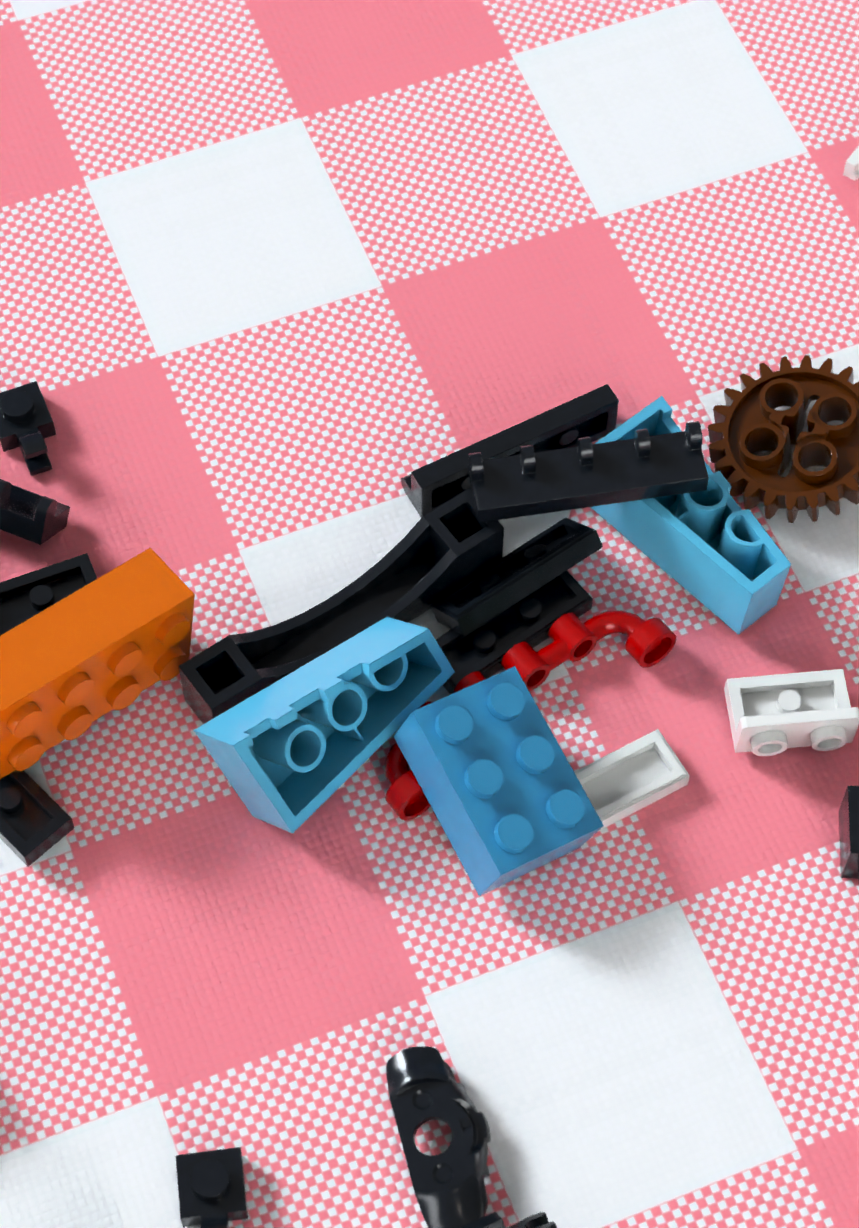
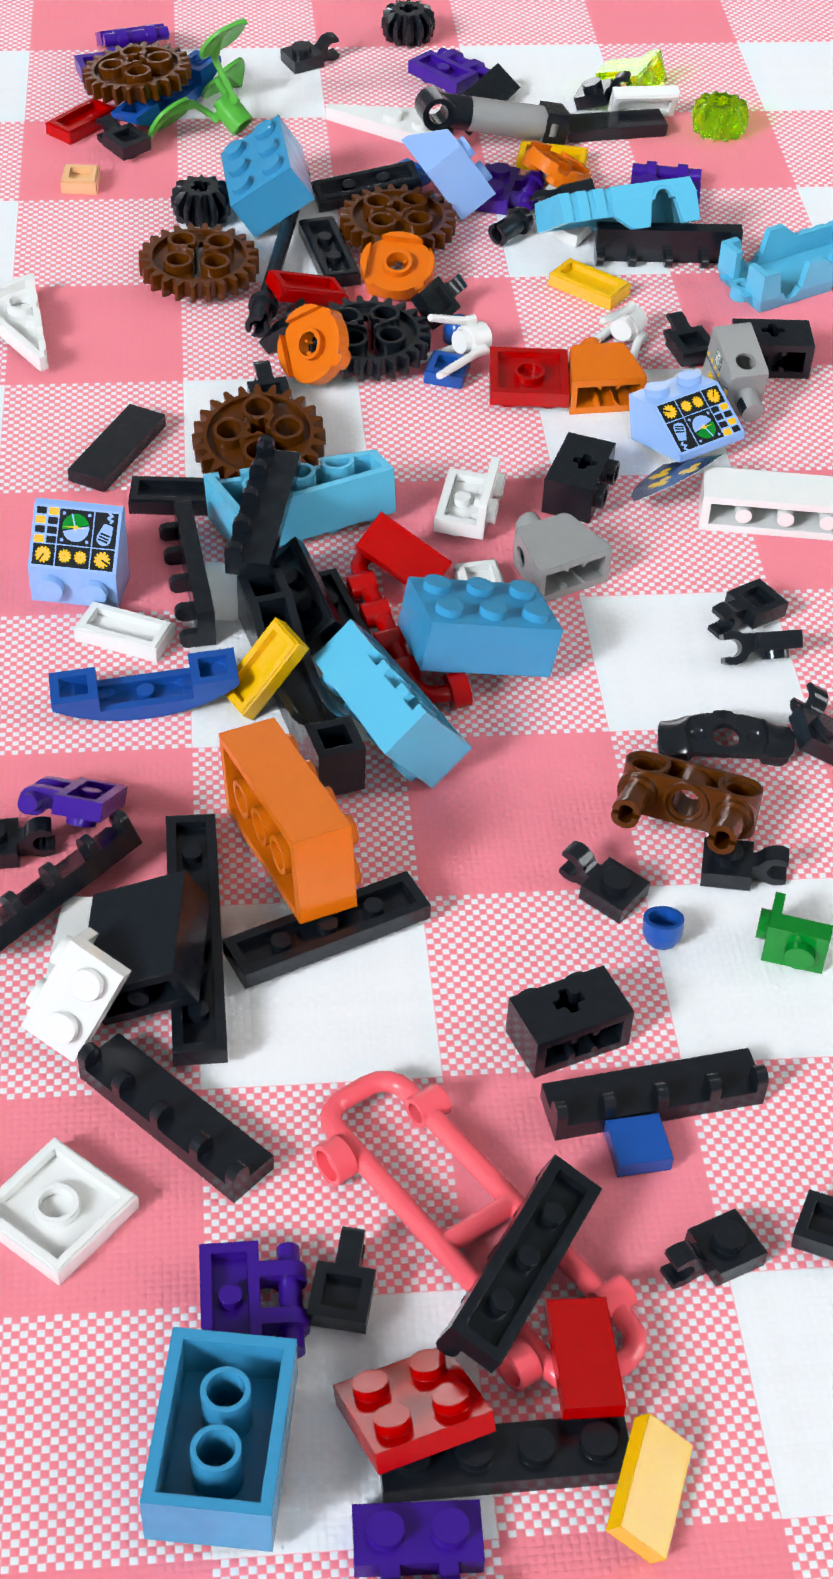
camera: 75 degrees left, 15 degrees down
(77, 471) = (79, 800): none -> dark purple plate
(80, 1123) = (663, 927): none -> blue hinge
(132, 1052) = (605, 887): none -> black plate
(290, 466) = (144, 695): none -> blue slope
(294, 1107) = (654, 786): none -> reddish brown piece
(348, 571) = (266, 667): none -> yellow tile
(398, 420) = (124, 631): none -> white tile
(469, 328) = (78, 553): none -> light blue slope
(626, 662) = (400, 551): none -> red tile
(646, 1155) = (772, 644): none -> black plate
(661, 370) = (157, 494): none -> black tile
(719, 844) = (559, 554): none -> light grey torso
(724, 1124) = (749, 603): none -> black plate
(731, 300) = (116, 448): none -> black tile

